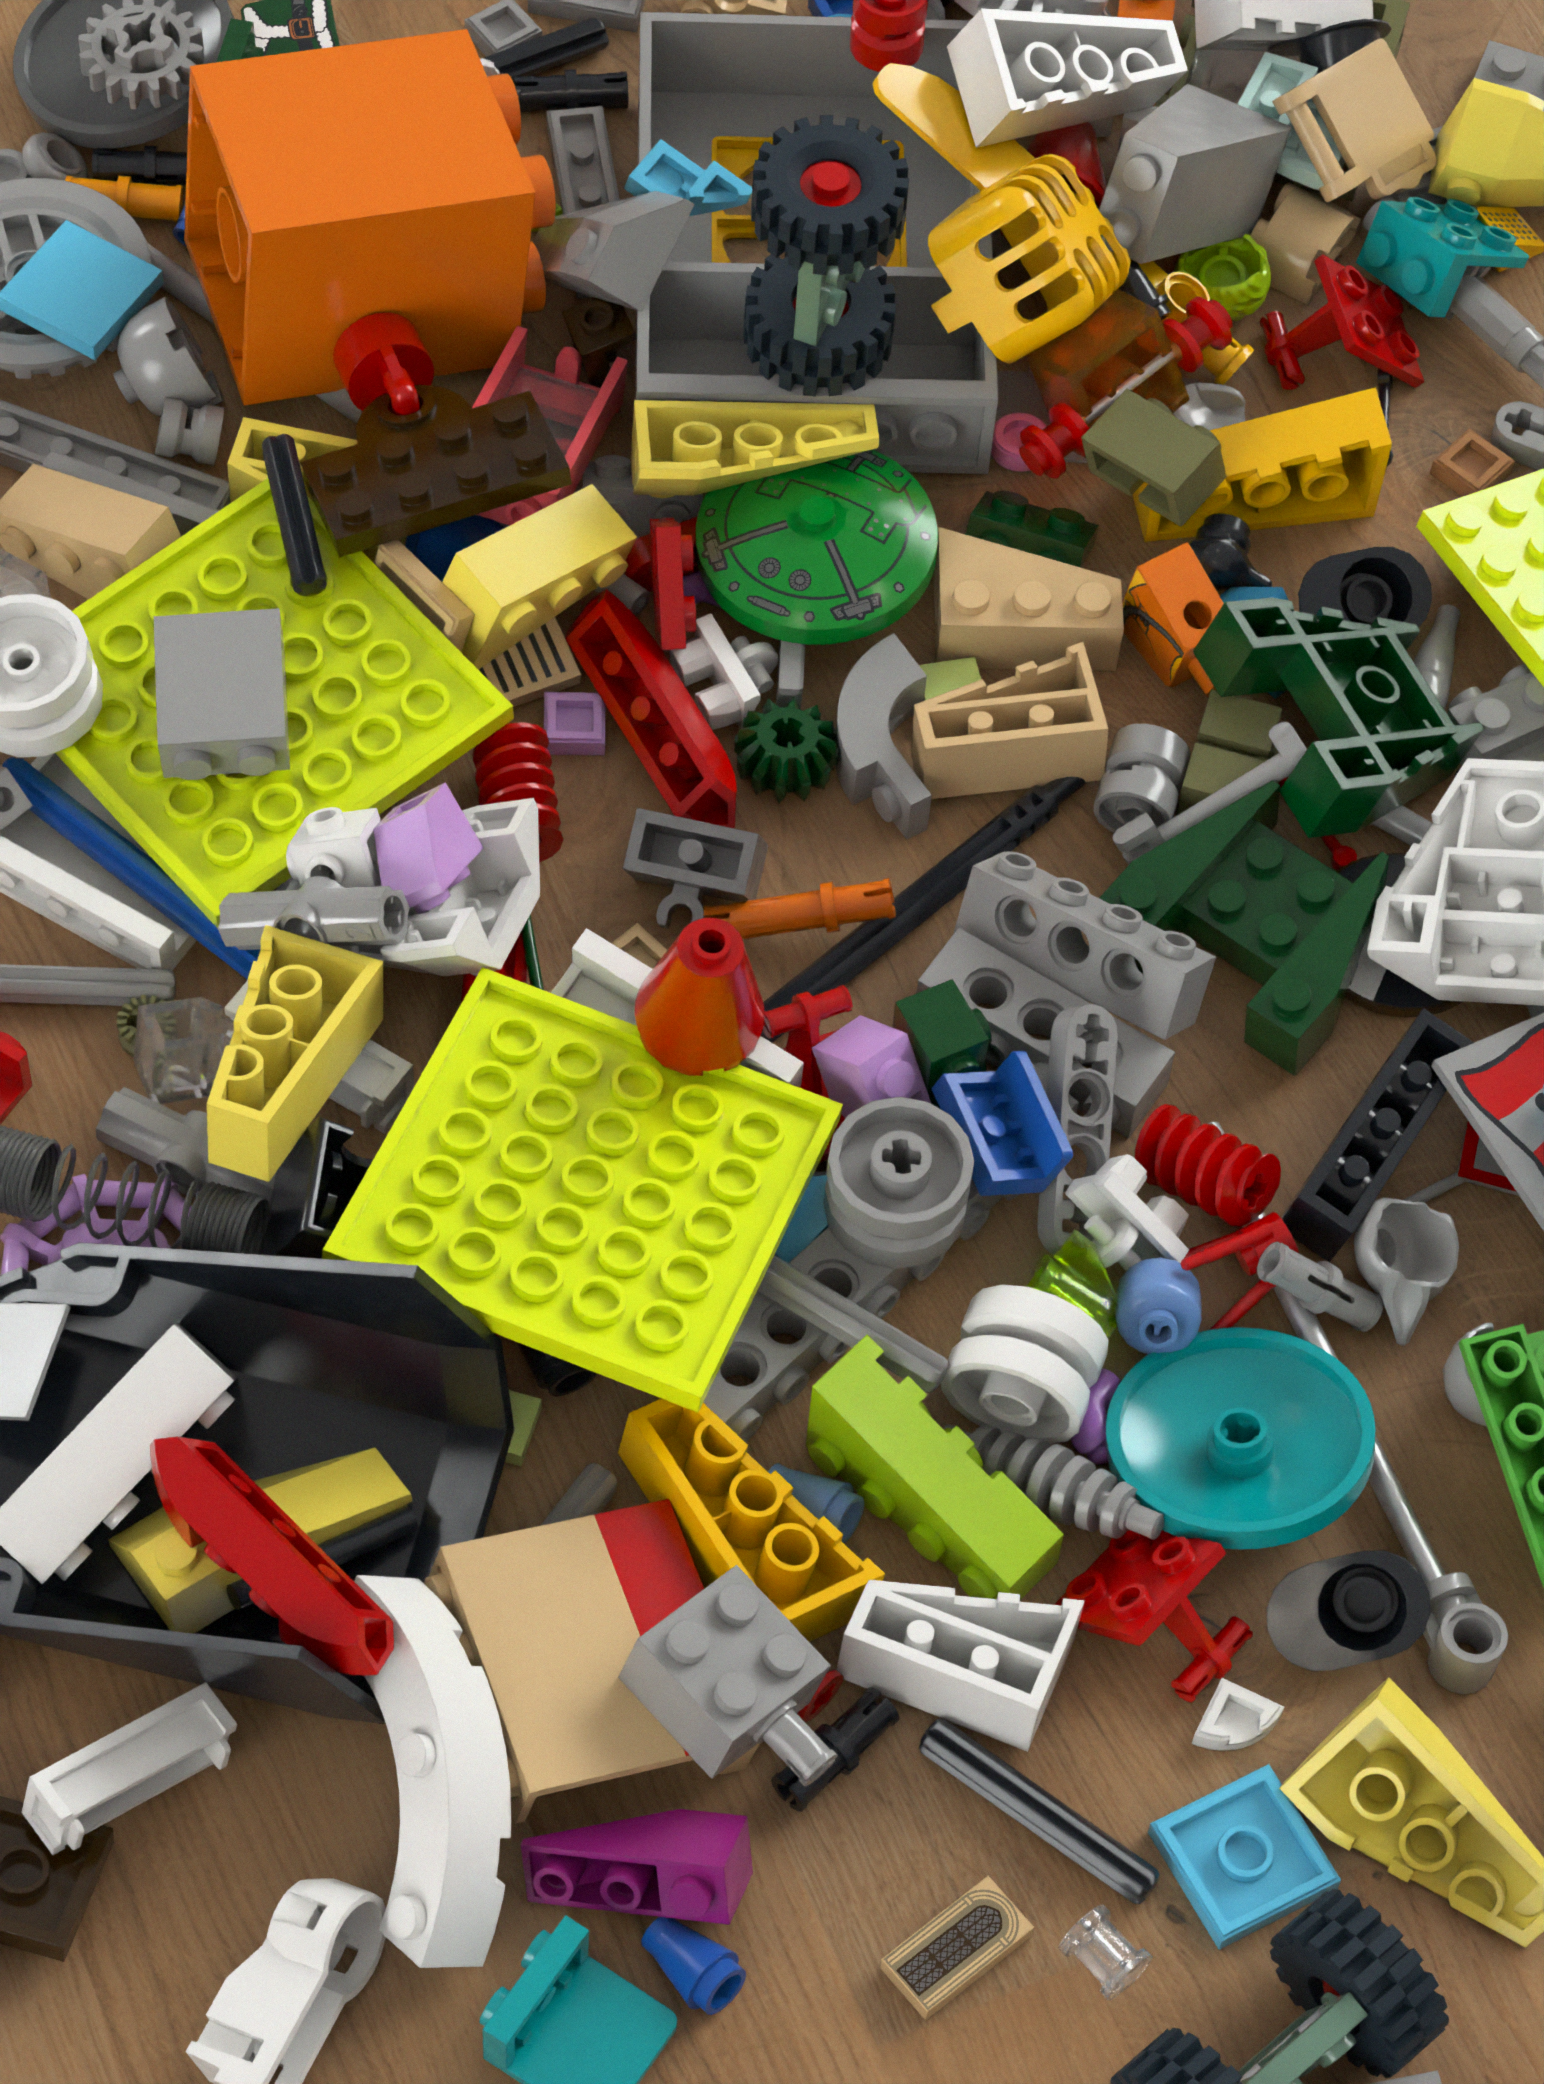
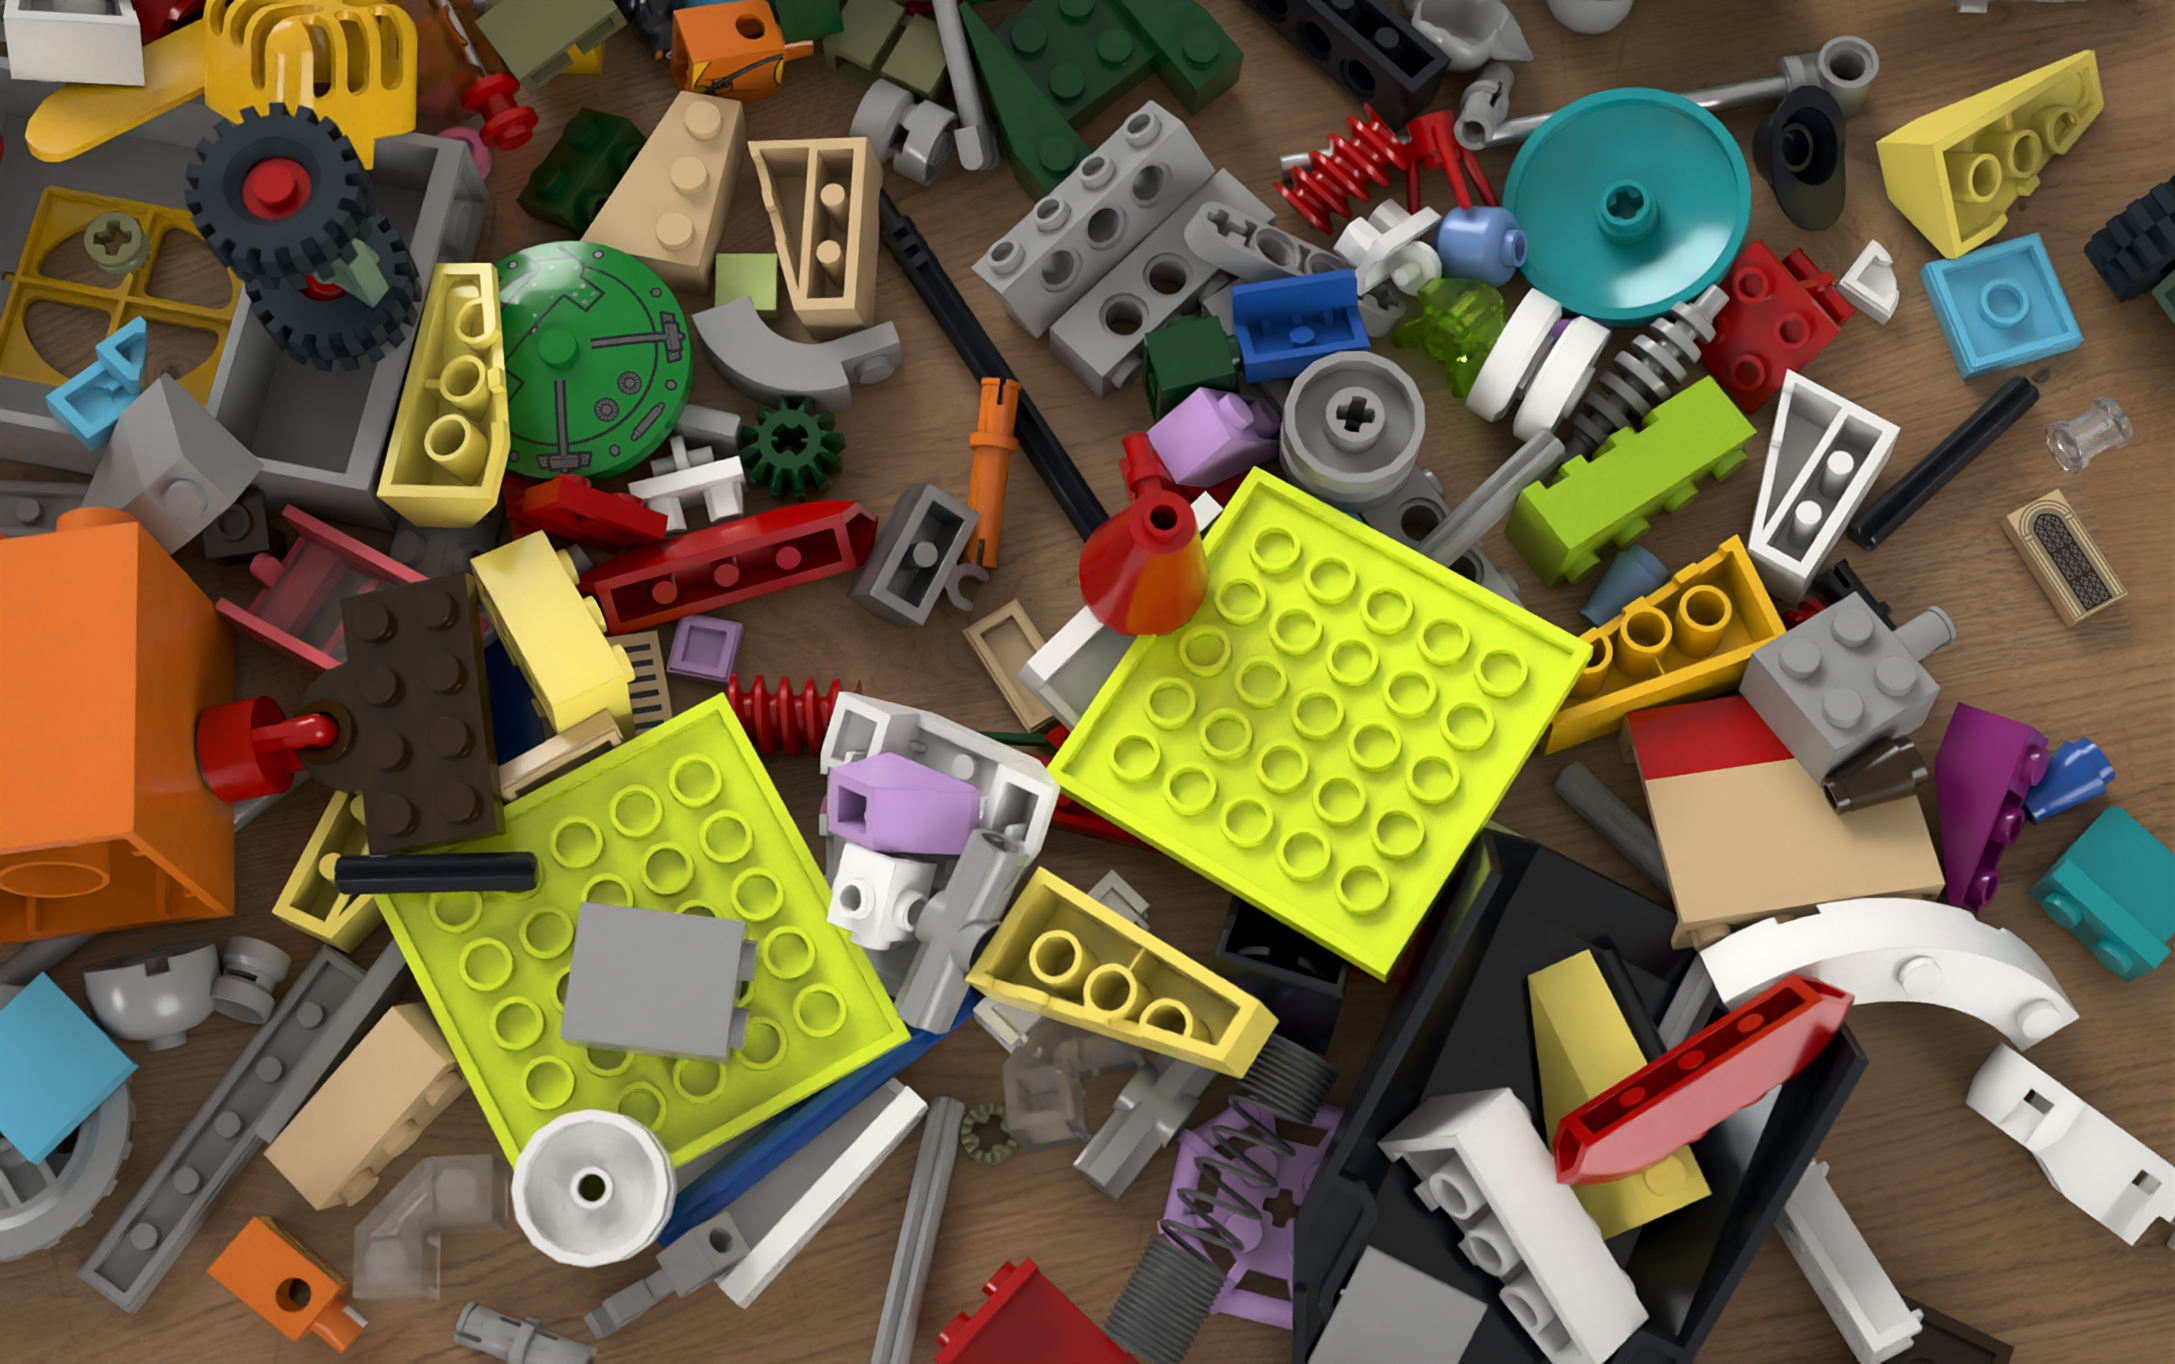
camera: 75 degrees left, 15 degrees up
(634, 1713) = (1876, 776): none -> dark brown cone

